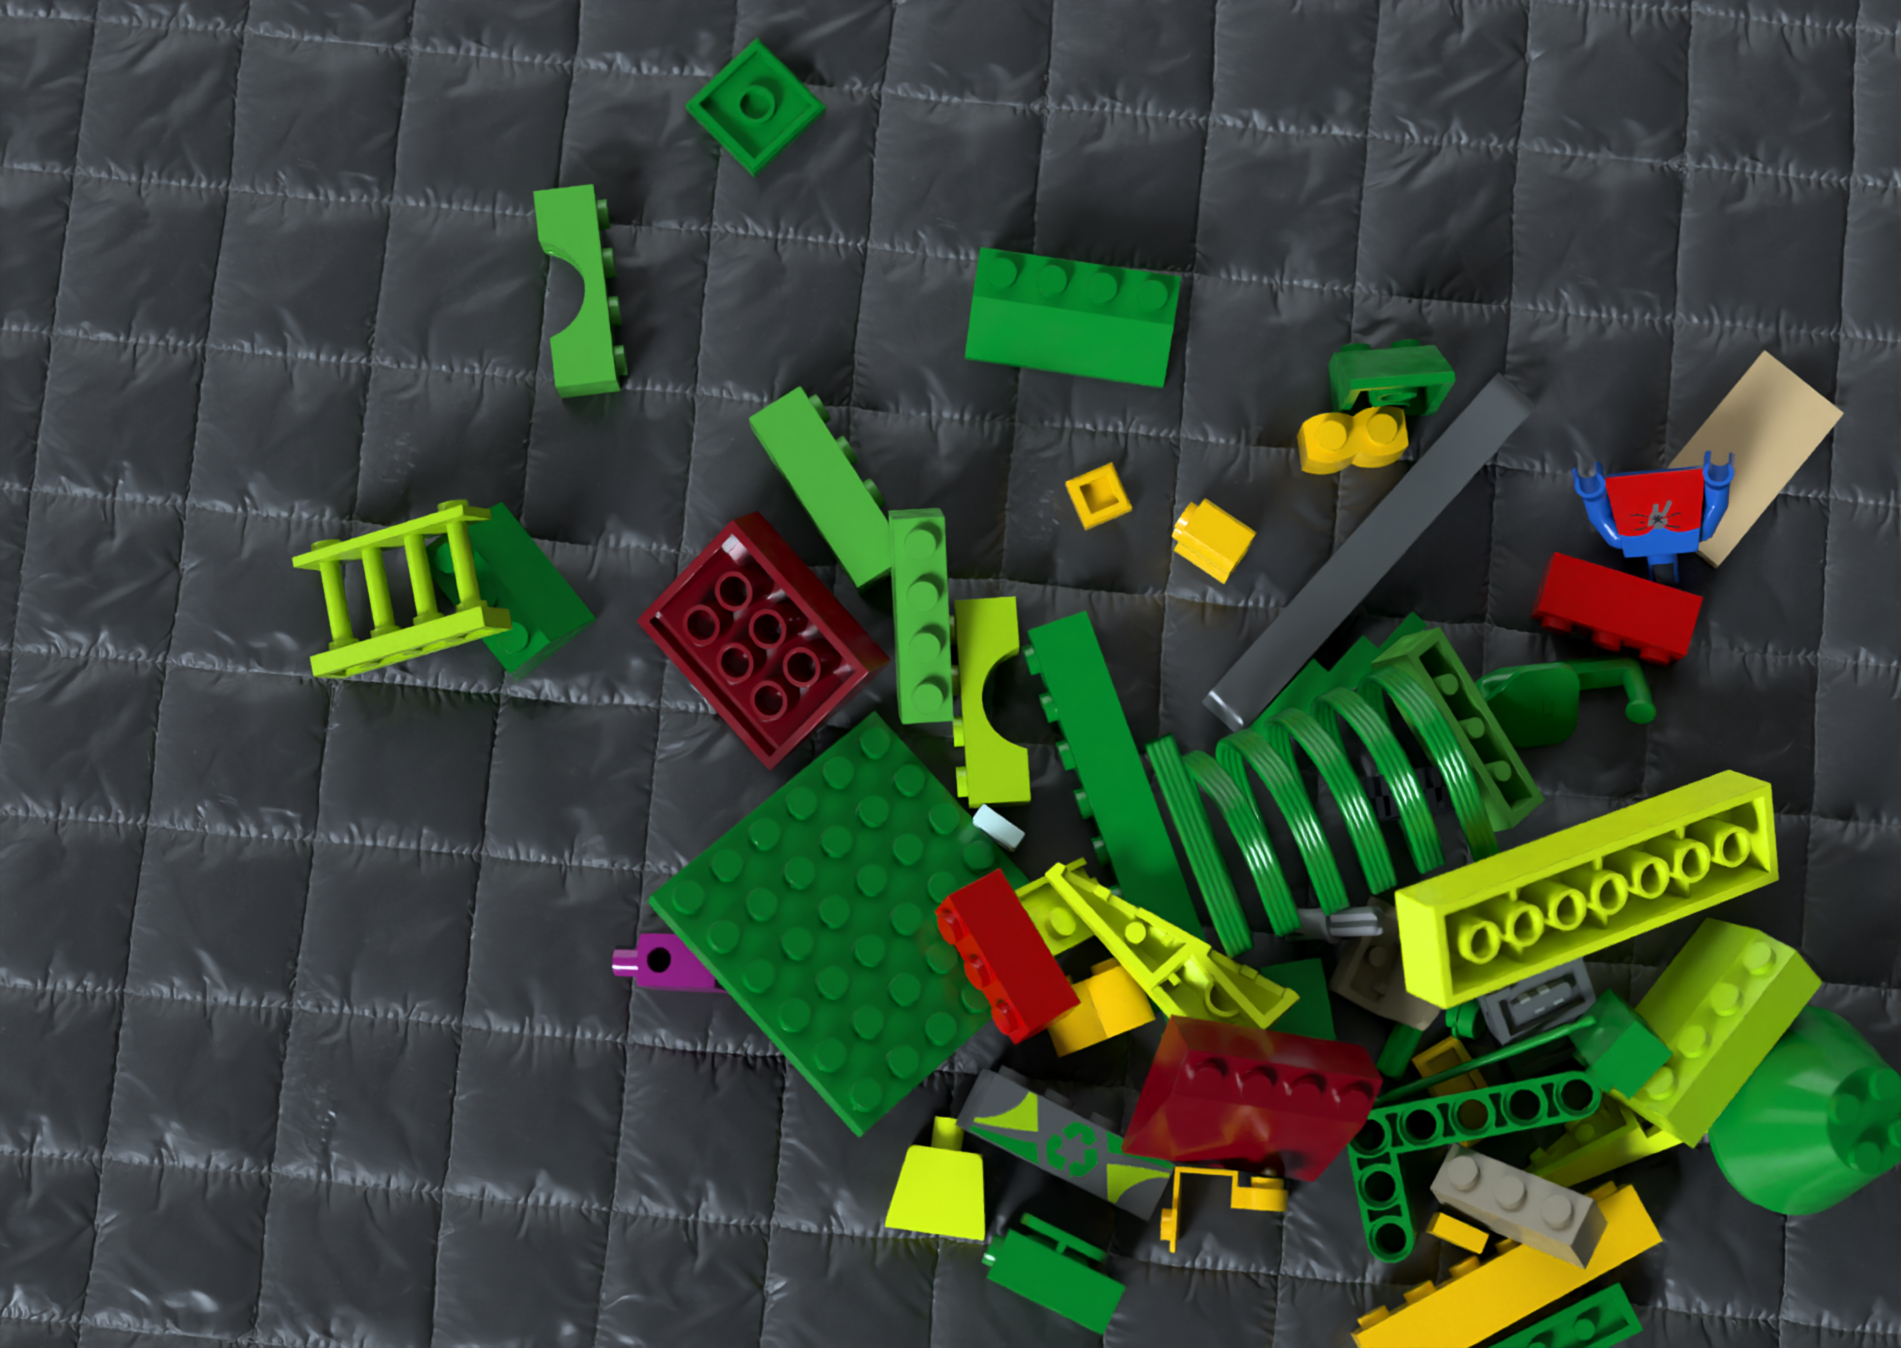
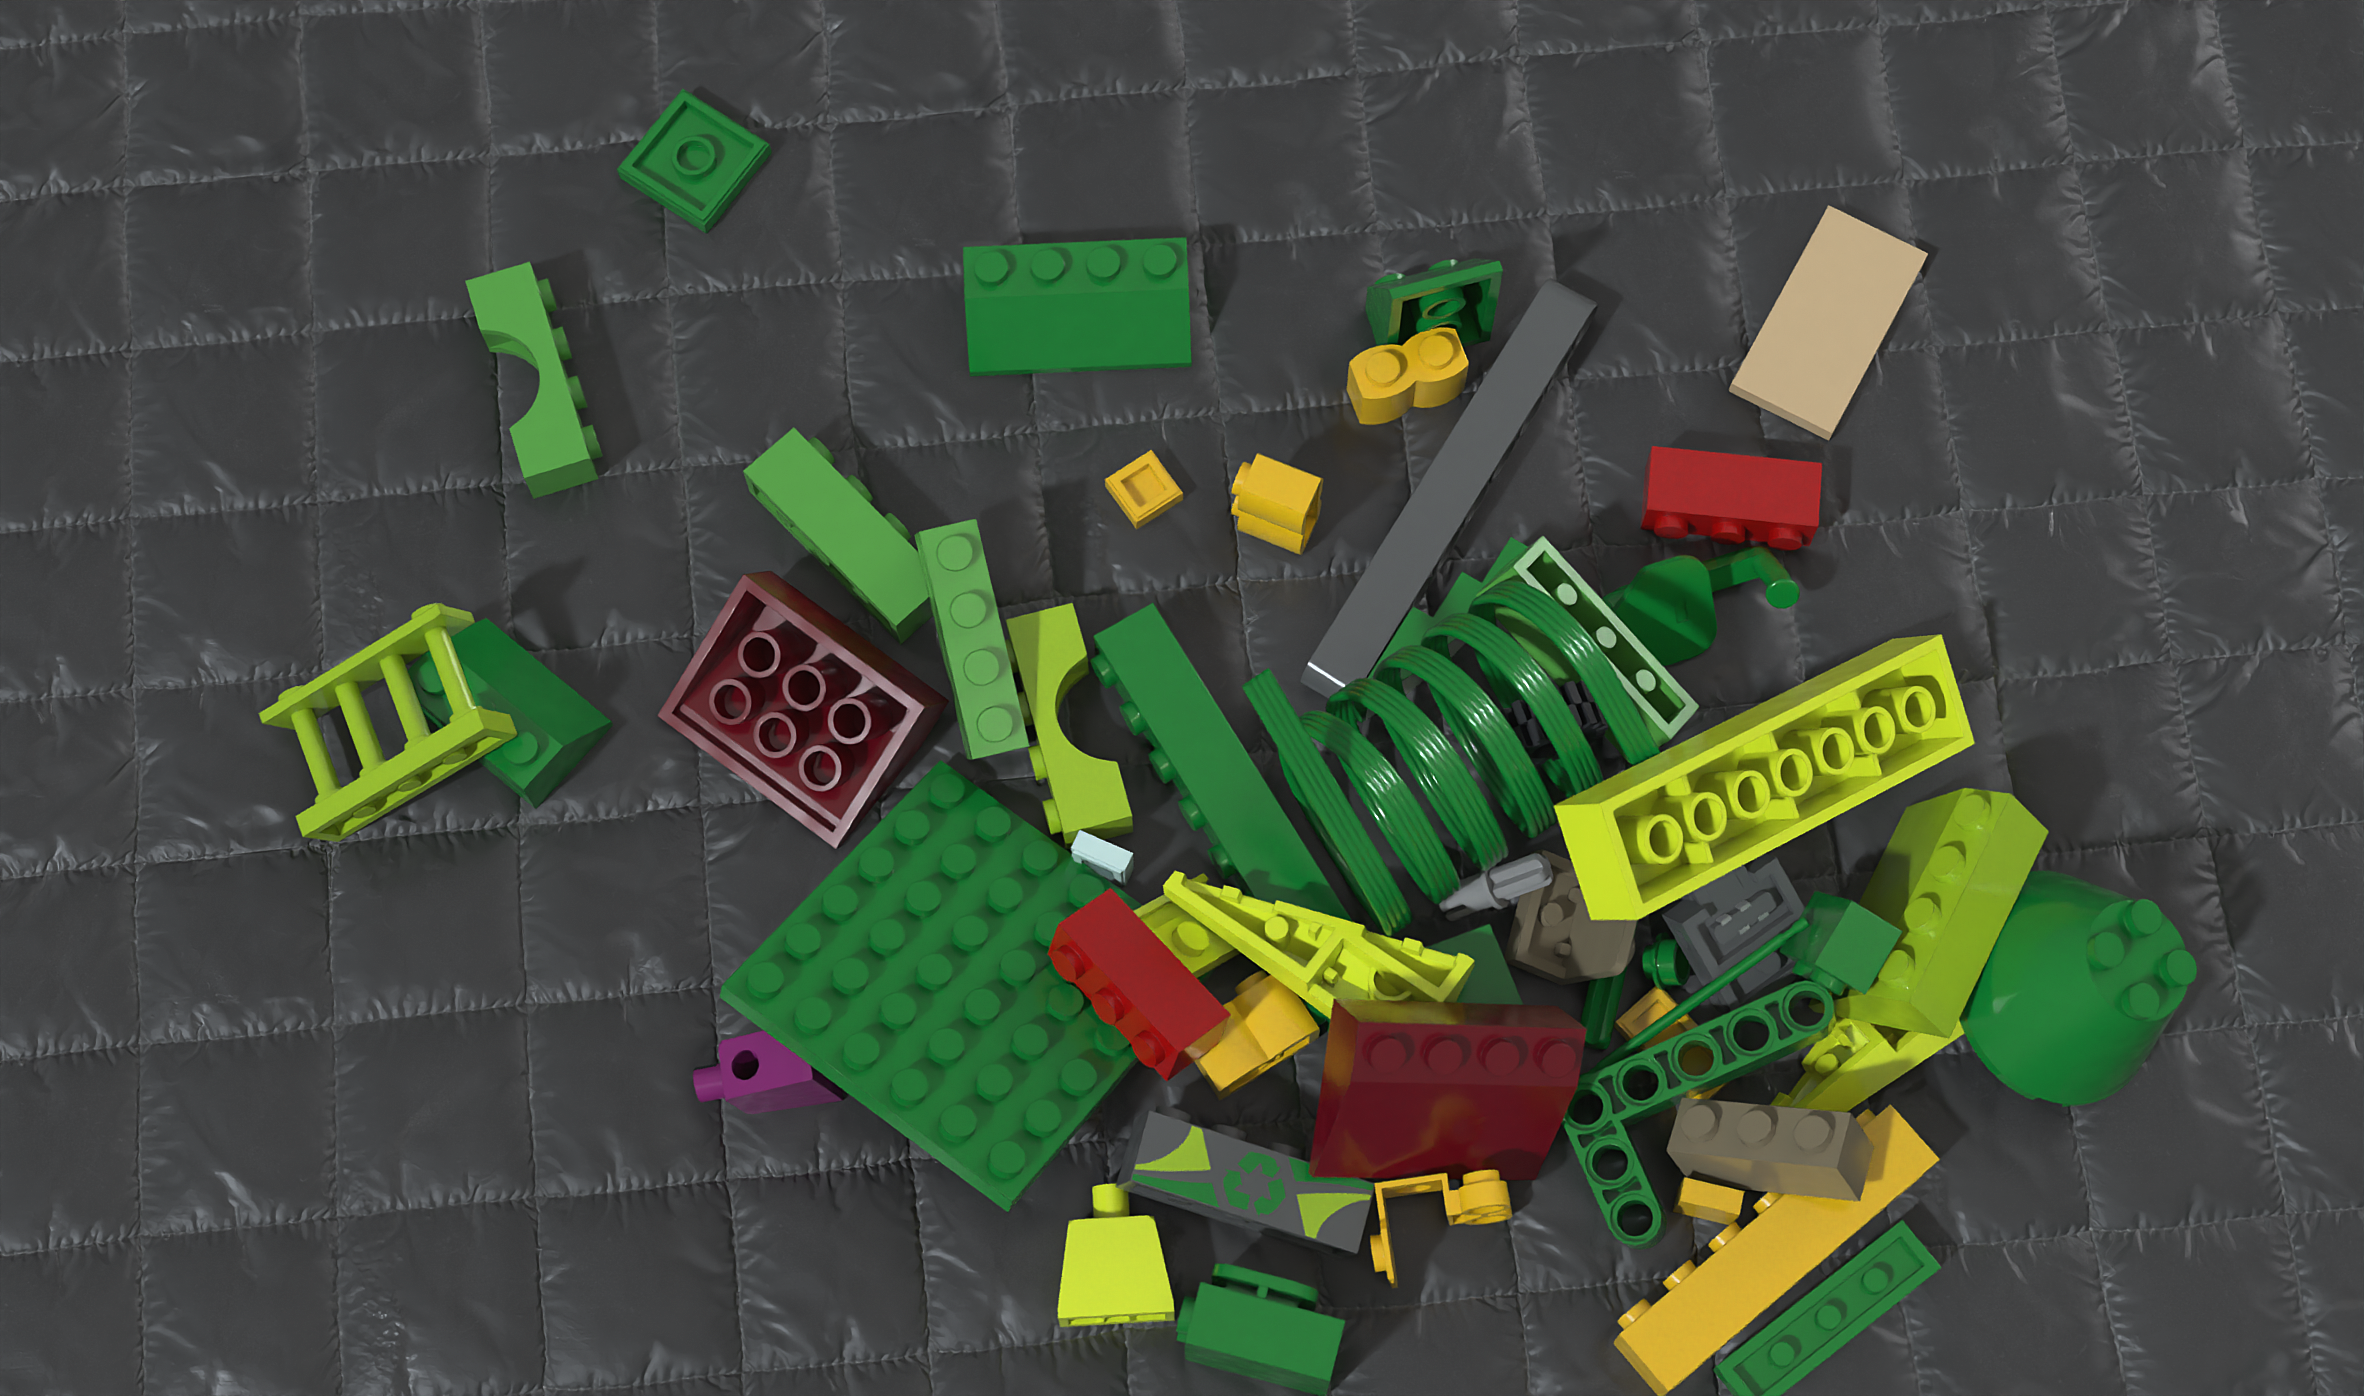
camera: 10 degrees left, 10 degrees down
(1658, 510) = (1752, 382): torso -> none

